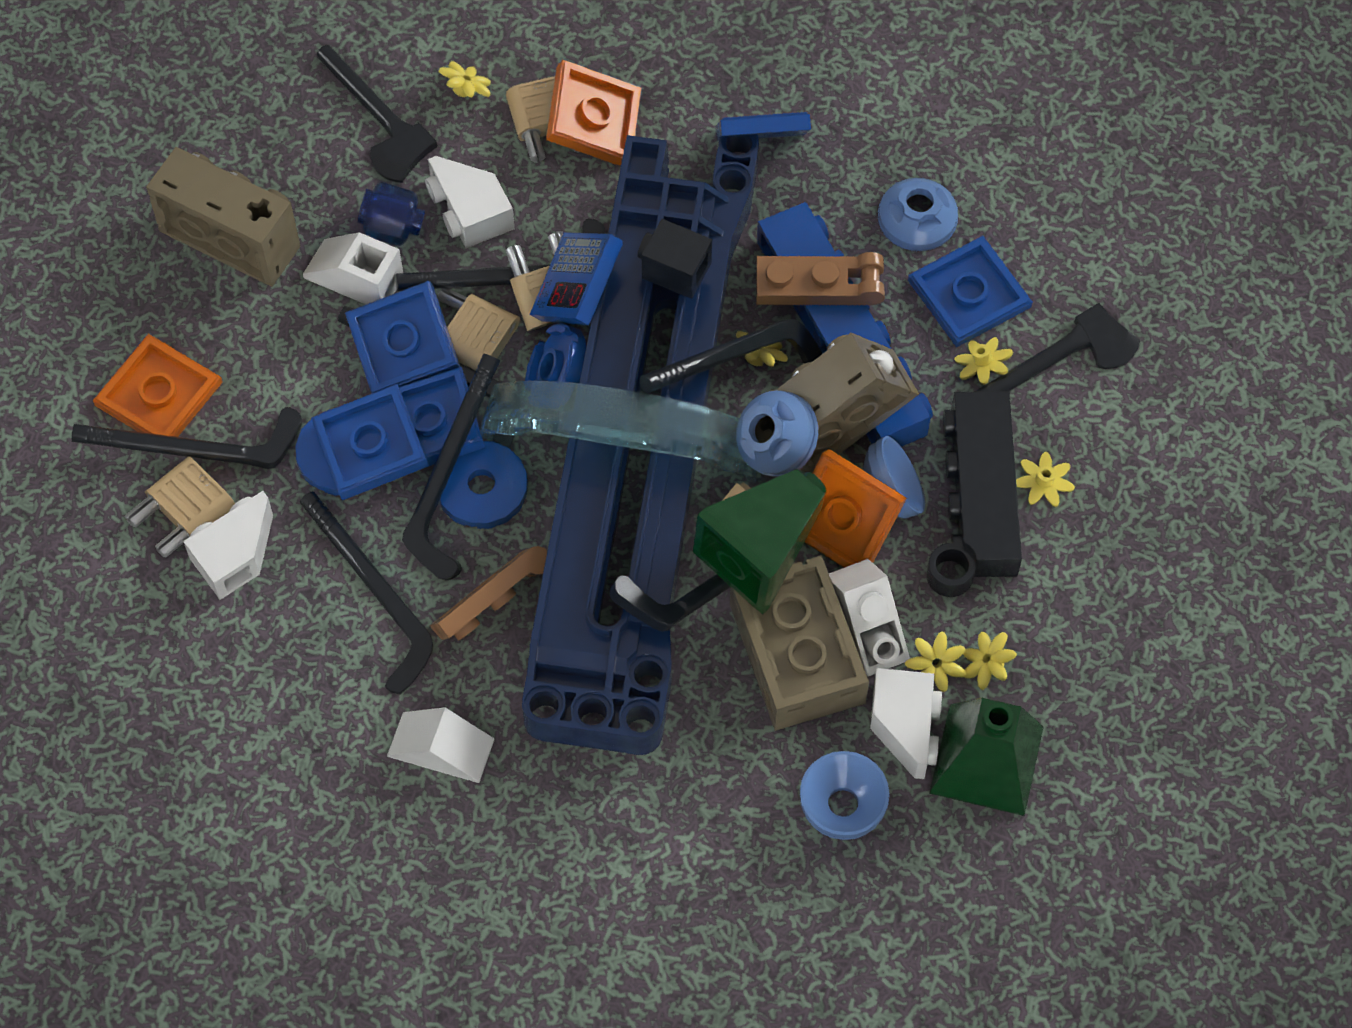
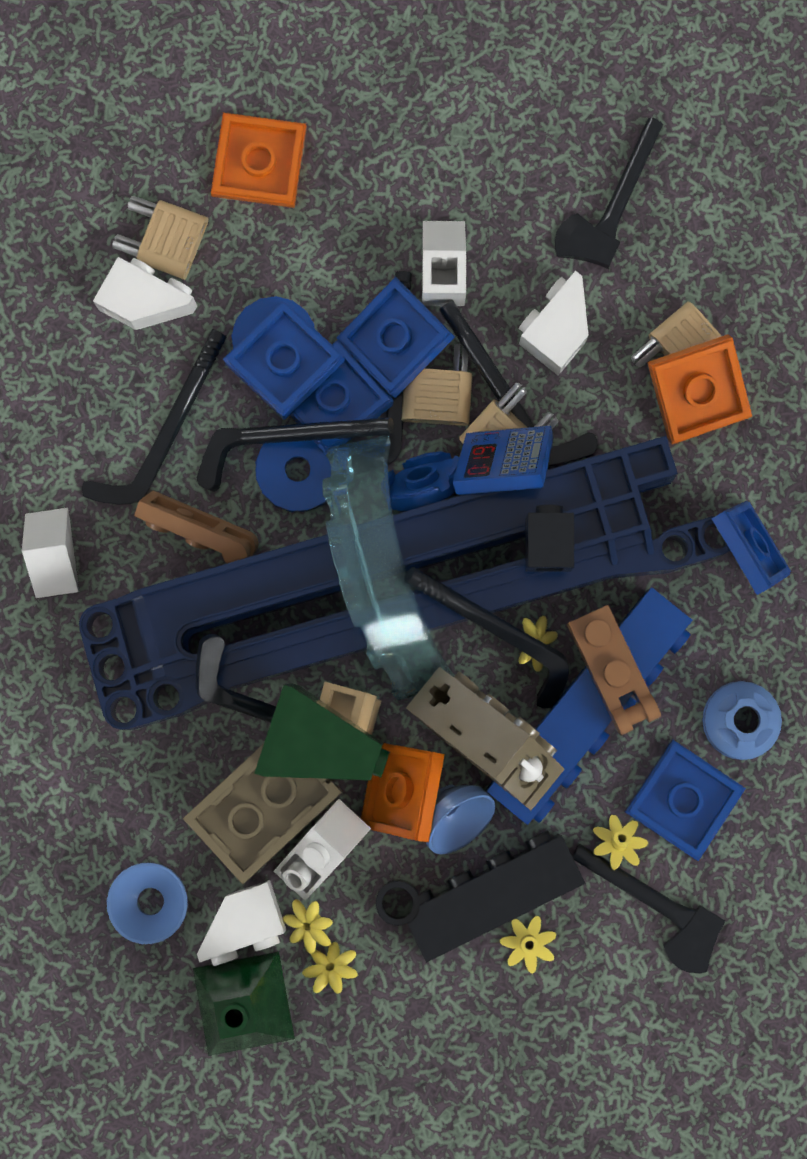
camera: 65 degrees right, 20 degrees up
(224, 215) = (436, 126): dark tan piece -> none
(262, 456) = (240, 280): black piece -> none
(390, 213) = (513, 264): clear blue head -> none
(465, 82) = (682, 260): light yellow plant -> none
(792, 439) = (438, 713): medium blue piece -> none

